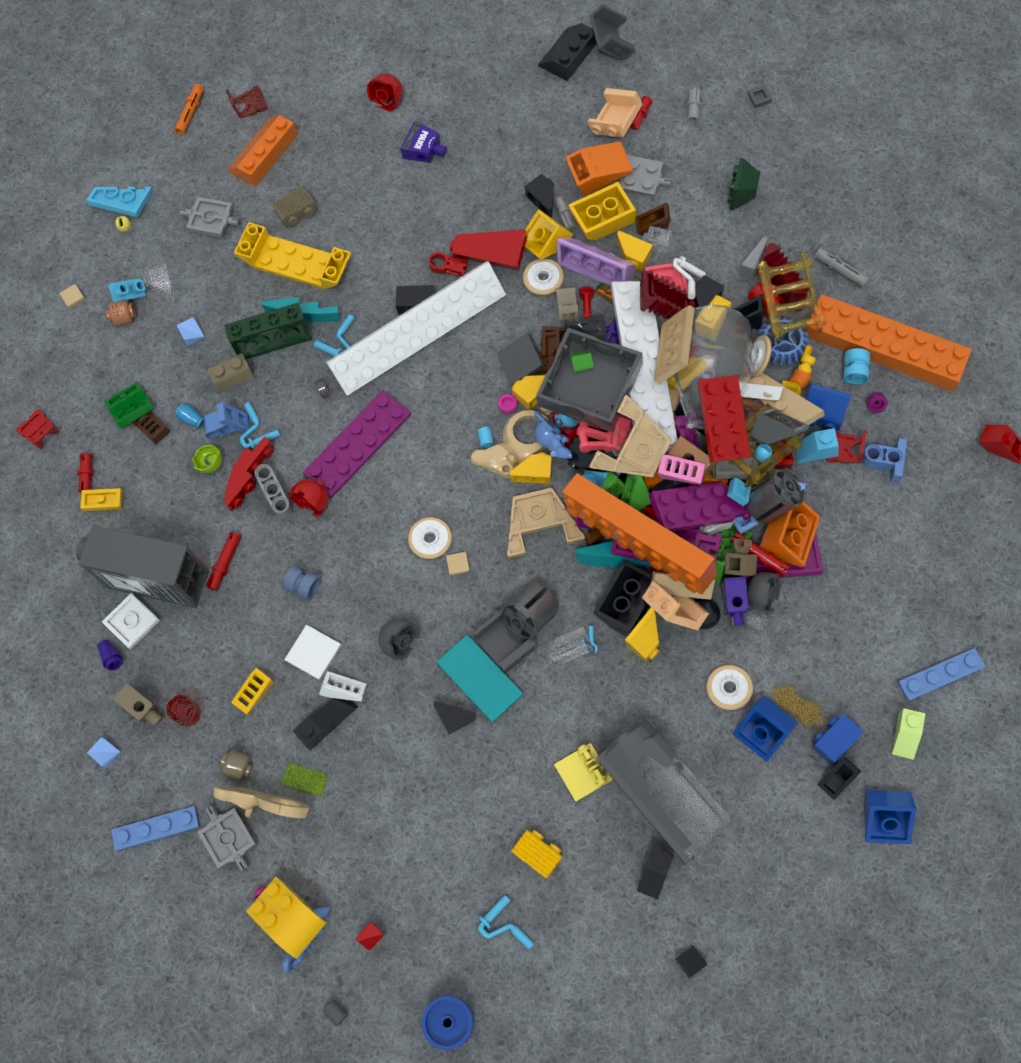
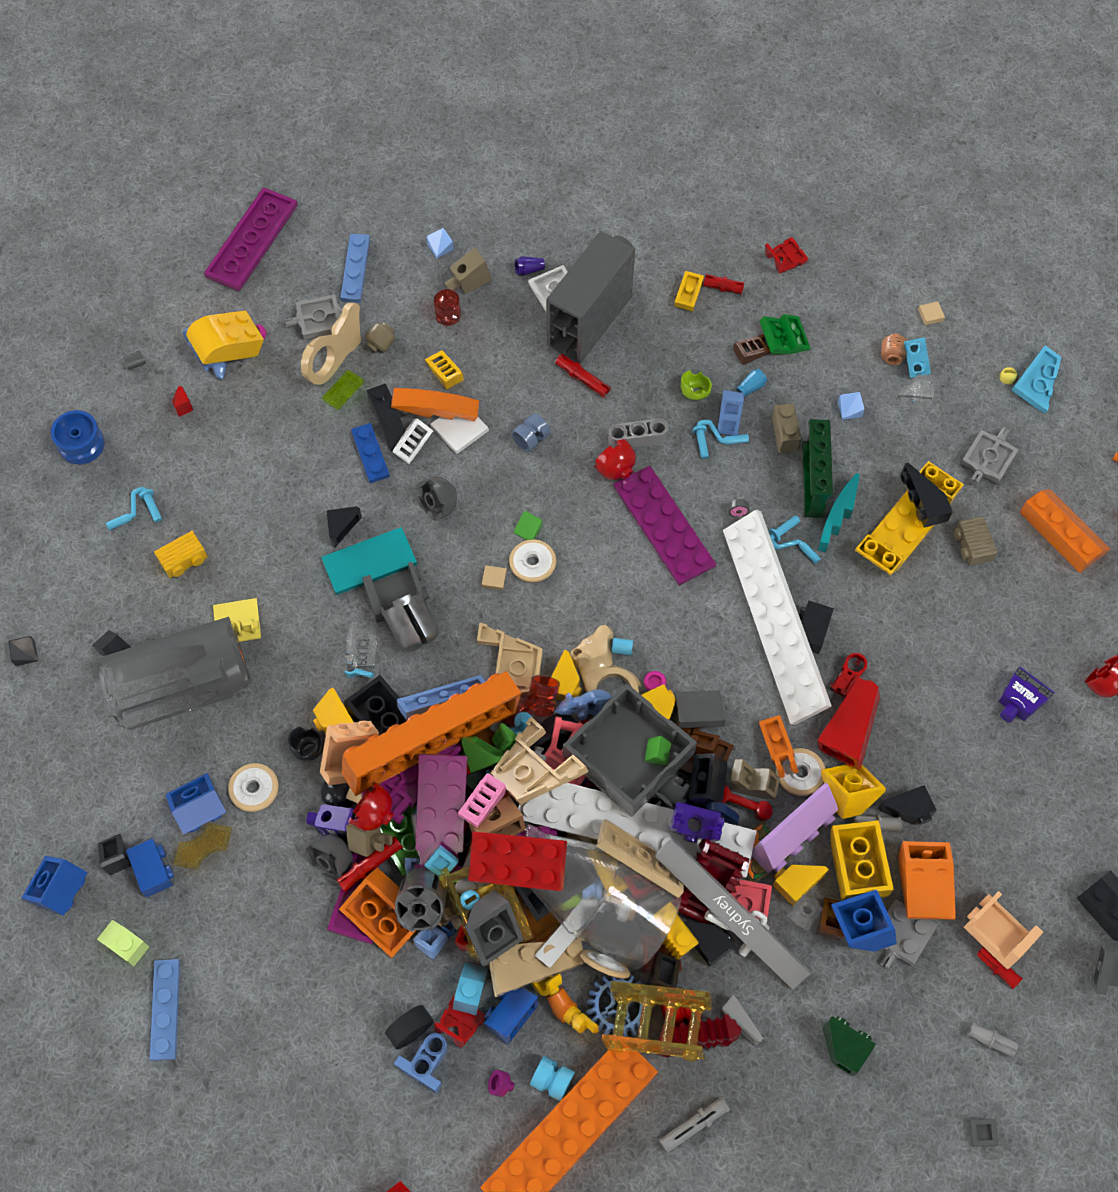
camera: 100 degrees right, 5 degrees down
(147, 955) = (251, 239): none -> magenta plate
(241, 478) = (661, 407): red slope -> none
(271, 244) = (929, 500): none -> black slope
(299, 677) = (434, 403): none -> orange slope
(366, 724) = (370, 453): none -> blue plate
(398, 552) = (528, 526): none -> bright green slope
(529, 295) = (778, 743): none -> orange hinge
(559, 472) = (542, 692): none -> clear red wheel
(595, 549) = (421, 702): none -> medium blue plate
(604, 310) = (727, 813): none -> dark blue tile
(629, 311) = (709, 822): none -> dark purple piece
(650, 192) = (865, 922): none -> blue slope
(677, 649) = (300, 738): none -> black hair
(684, 278) = (732, 913): none -> light grey tile
(728, 552) = (373, 809): none -> red cylinder
(869, 476) = (409, 1027): none -> black tyre

